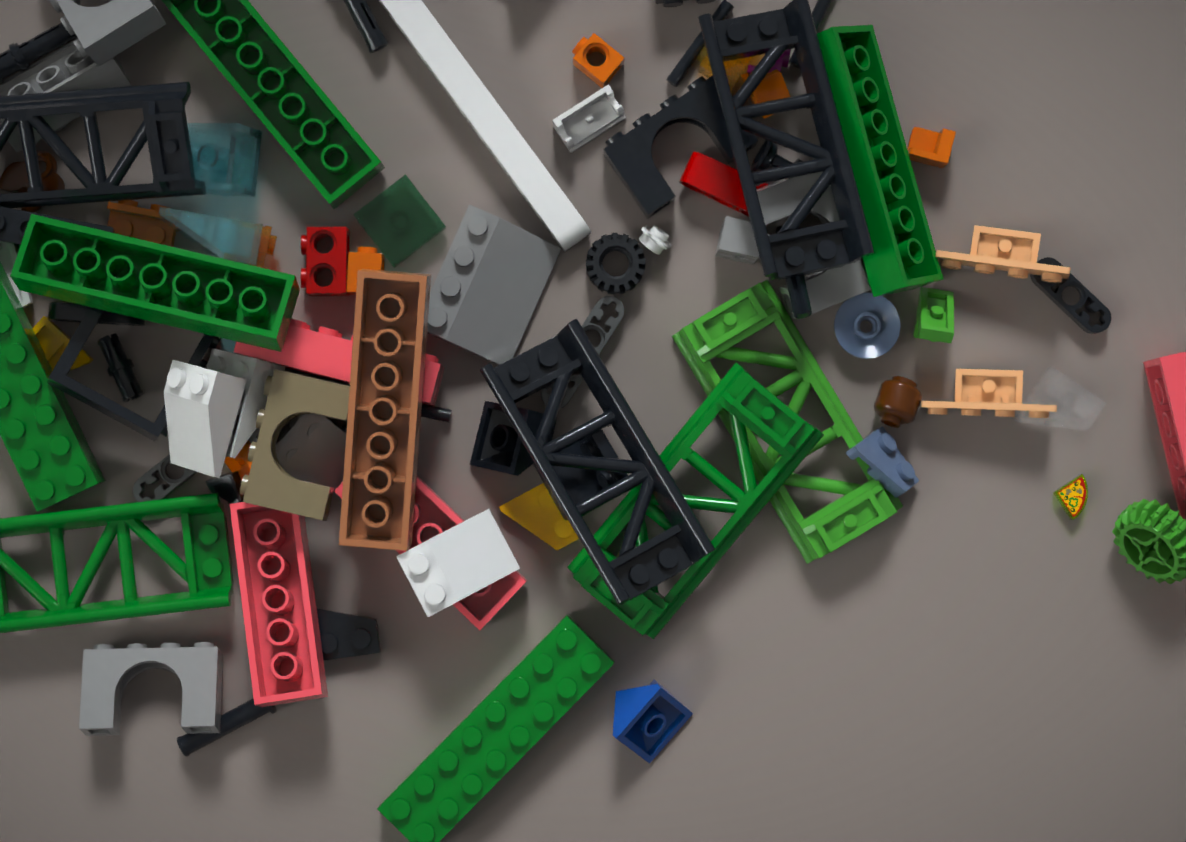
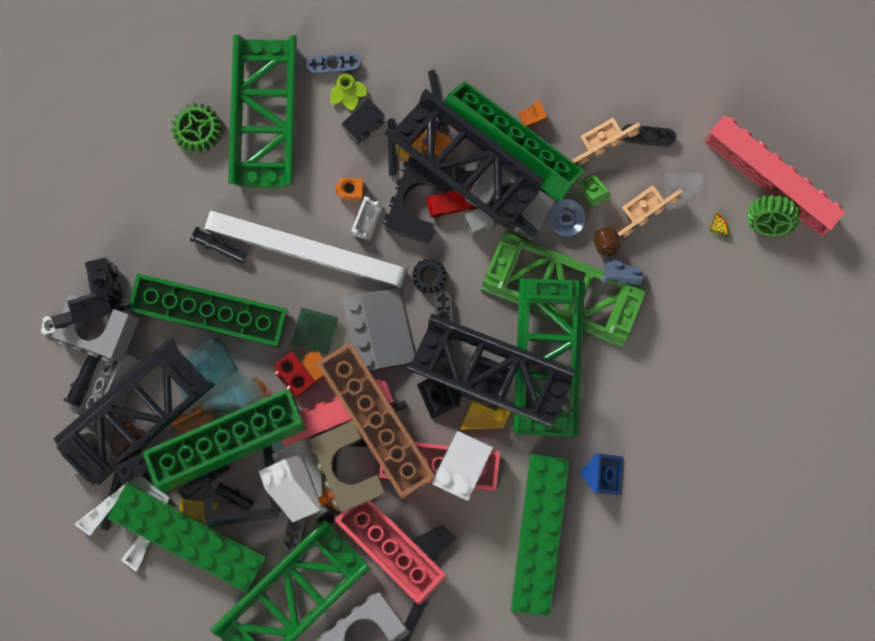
camera: 30 degrees left, 5 degrees down
(654, 239) = (439, 251): white plate -> none

